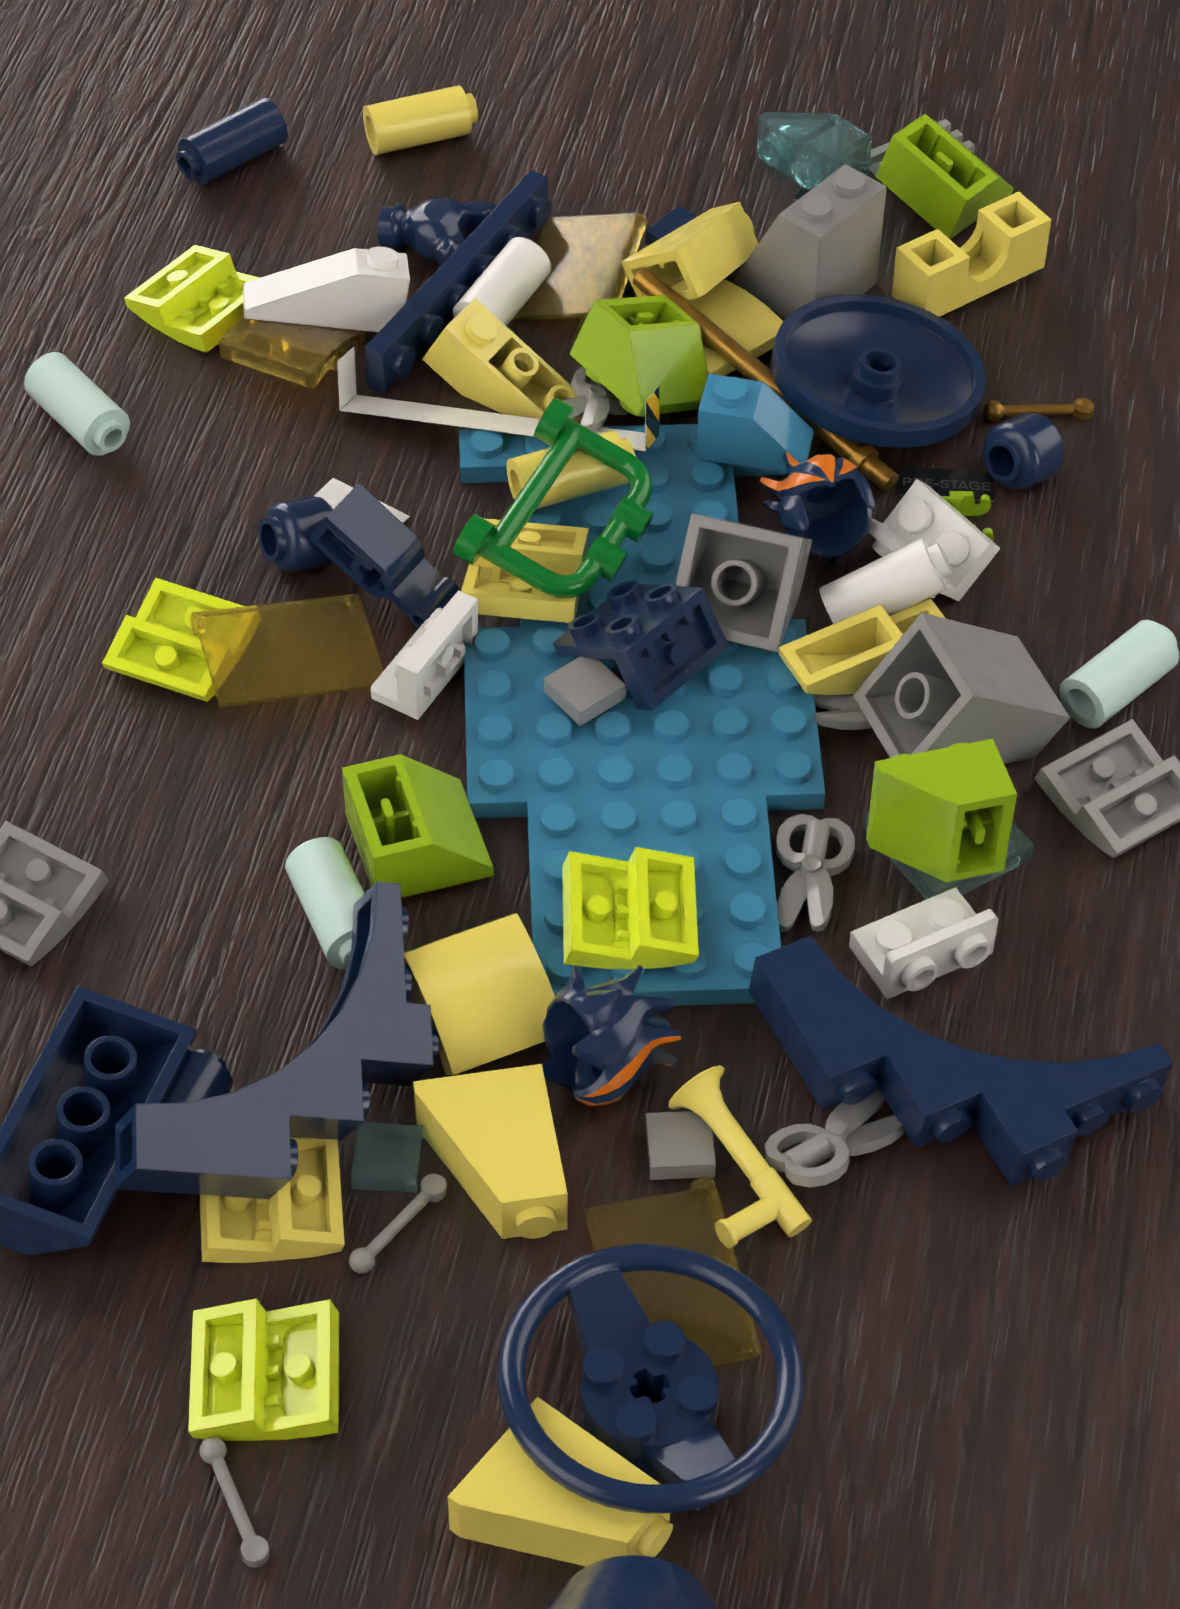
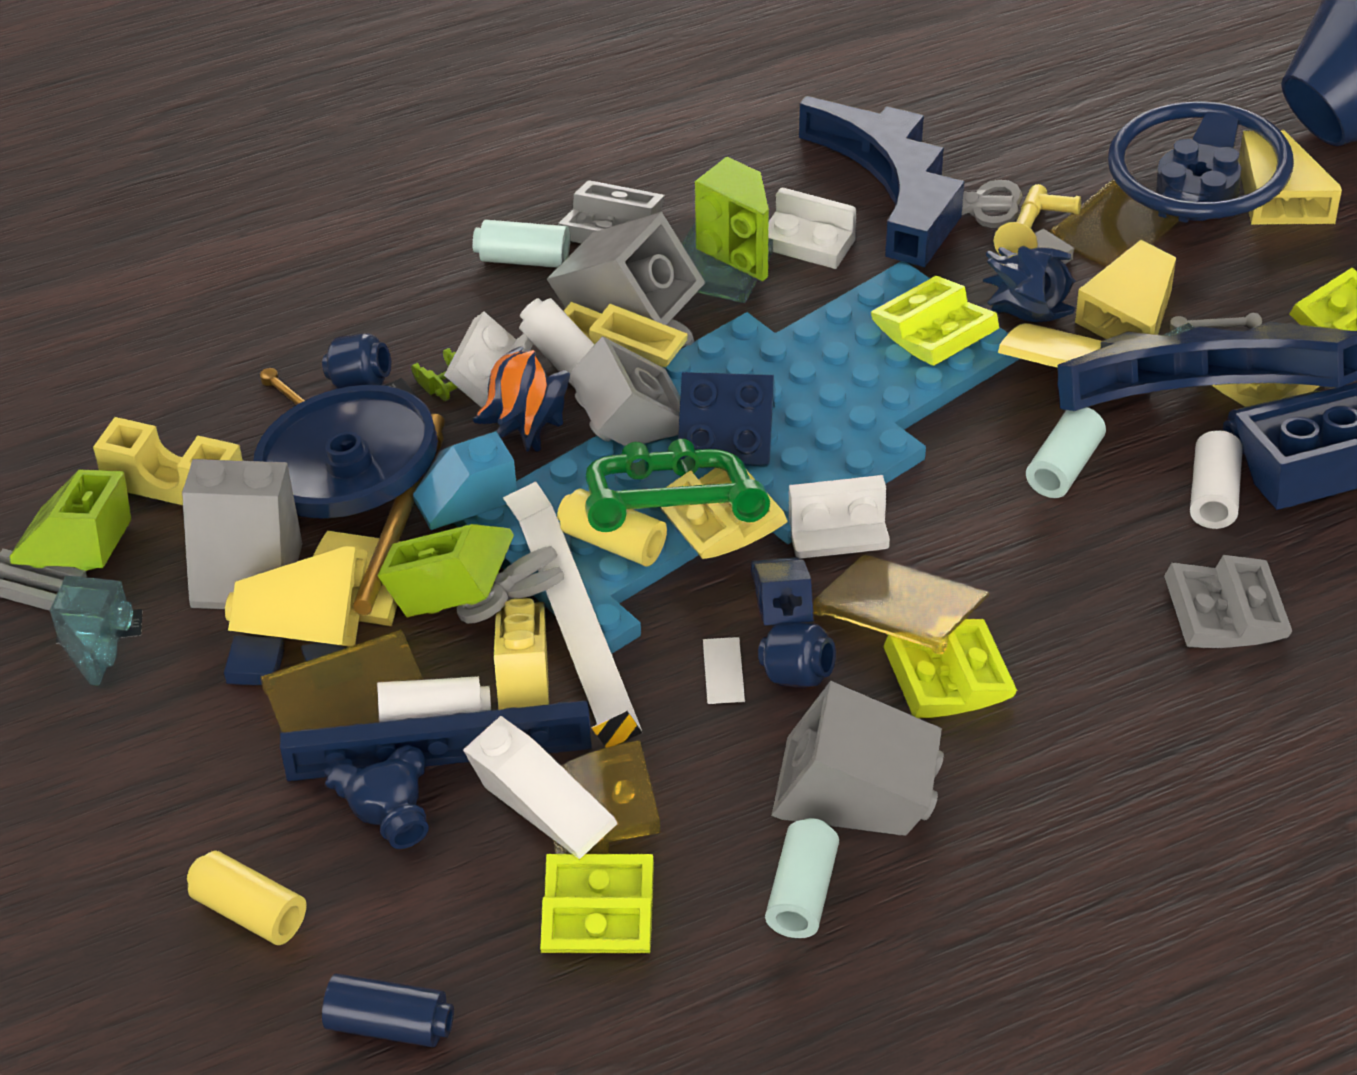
camera: 125 degrees left, 5 degrees down
(131, 489) = (859, 765): none -> light grey slope
(152, 982) = (1216, 479): none -> white brick
(413, 825) = (983, 444): lime slope -> none
(584, 688) = (793, 426): light grey tile -> none
(811, 868) = (810, 295): light grey piece -> none

